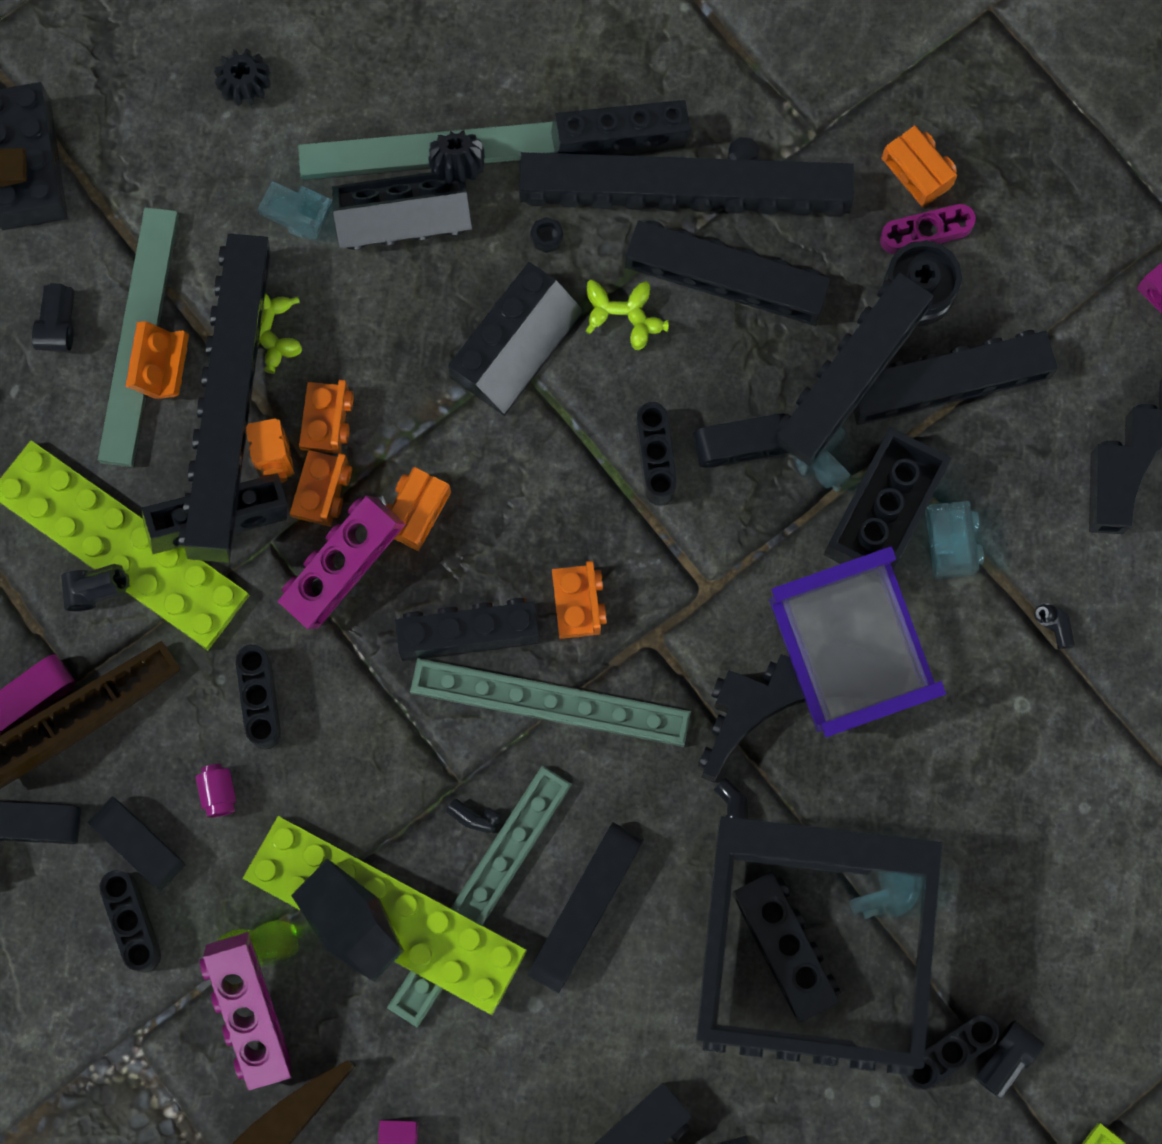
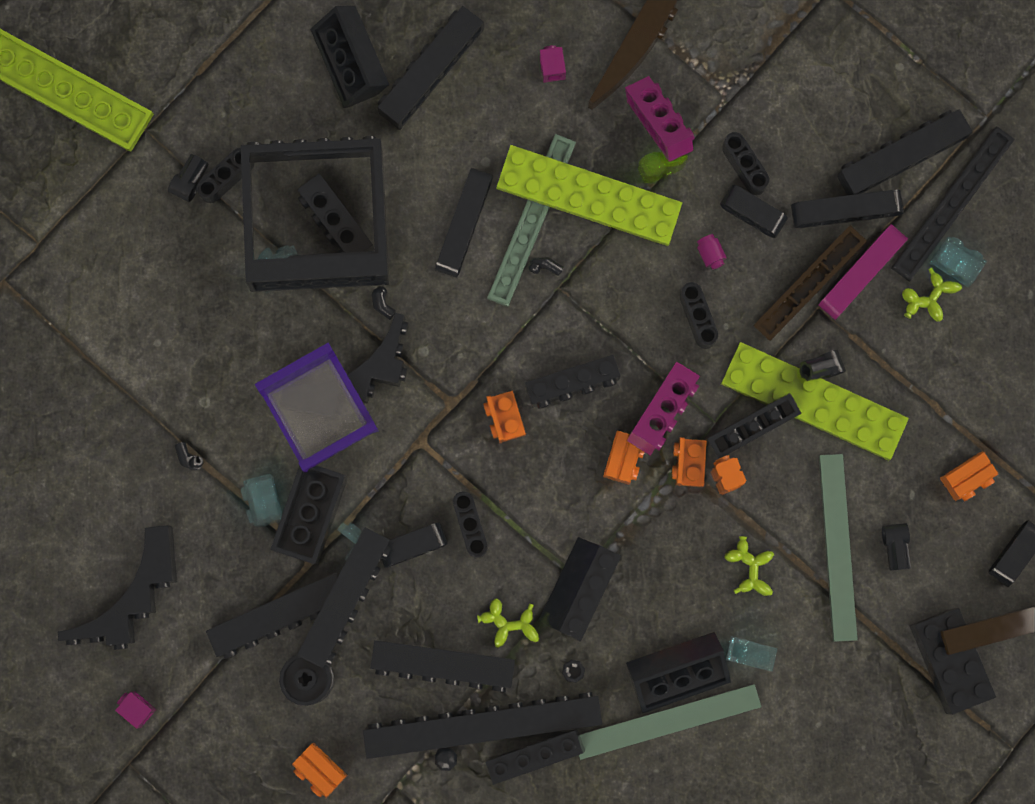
camera: 170 degrees right, 5 degrees up
(157, 361) = (819, 528): orange bracket -> none
(227, 399) = (763, 504): black brick -> none
(242, 77) = (817, 757): black gear -> none
(325, 416) = (698, 512): orange bracket -> none
(348, 920) = (609, 182): black piece -> none
(456, 157) = (646, 711): black gear -> none
(550, 702) = (510, 348): sand green tile -> none
(953, 230) = (289, 726): magenta beam -> none

